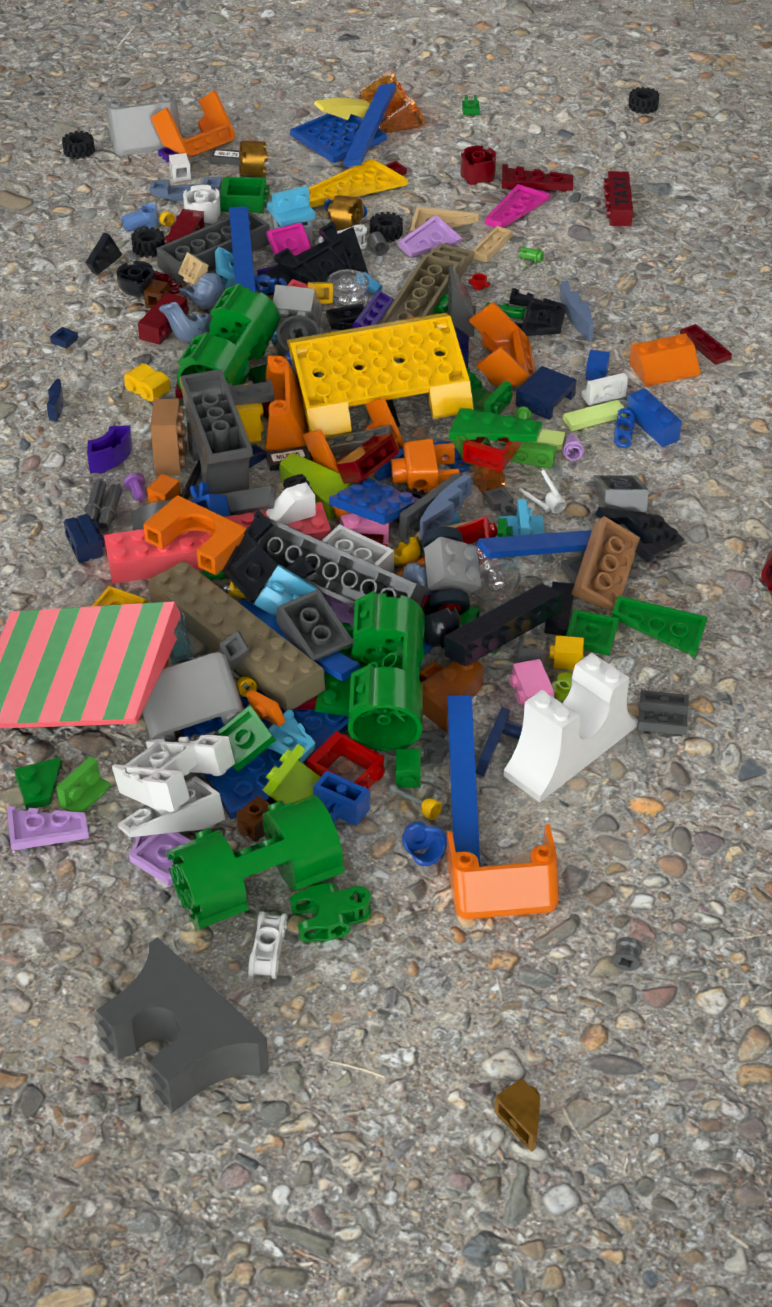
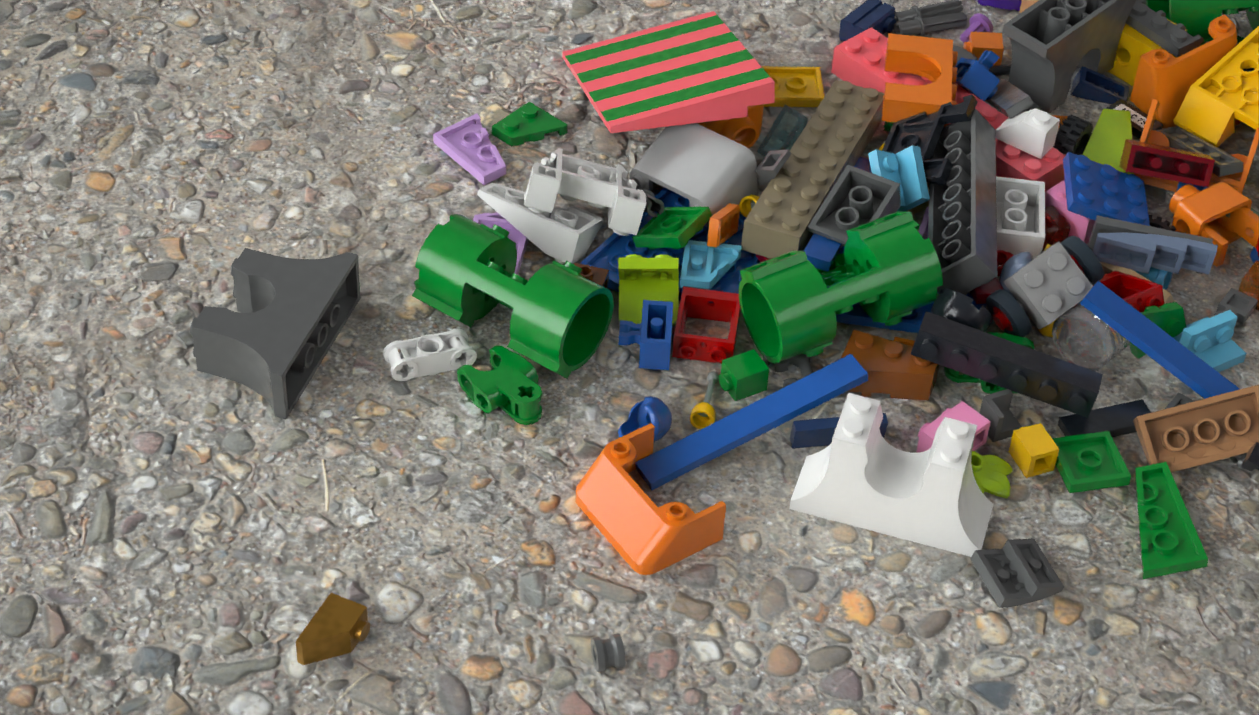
camera: 60 degrees right, 0 degrees up
(82, 787) = (530, 145): bright green bracket -> none

